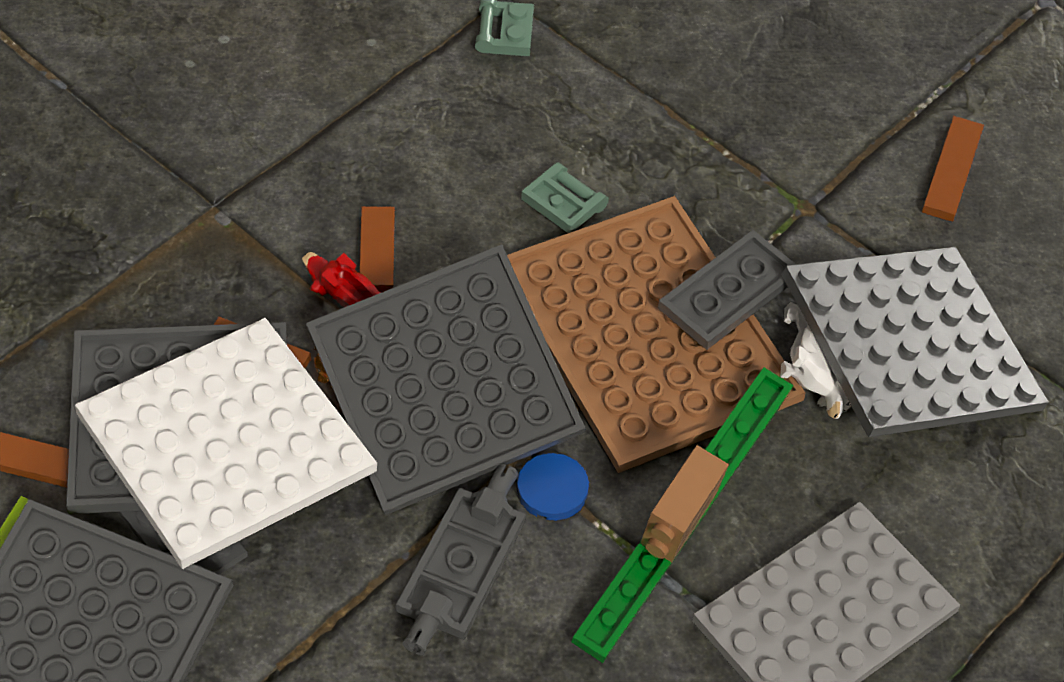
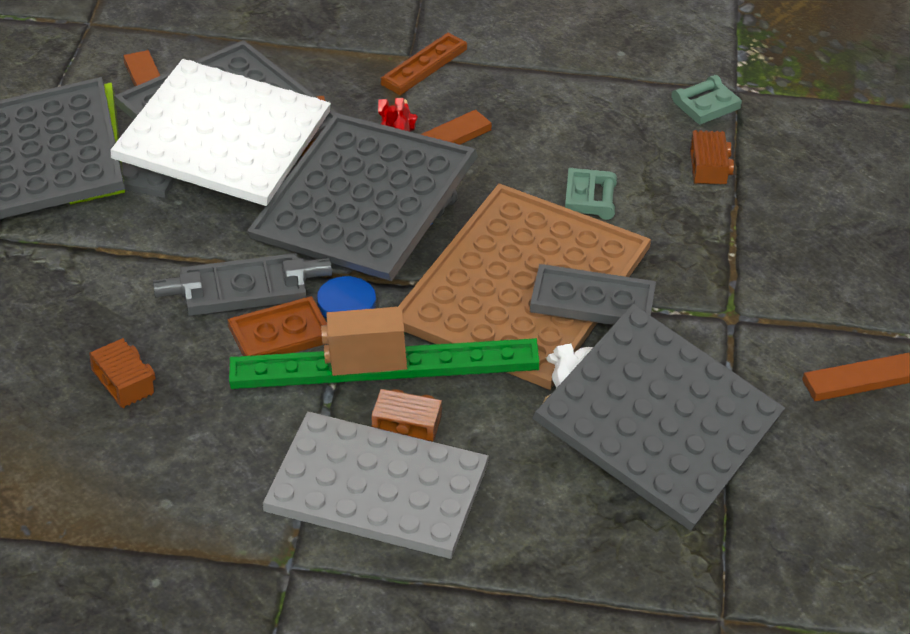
camera: 55 degrees right, 10 degrees down
(242, 202) = (423, 63): none -> dark orange tile
(551, 570) = (279, 329): none -> dark orange tile
(596, 80) = (711, 157): none -> dark orange brick
(764, 533) = (407, 414): none -> brick

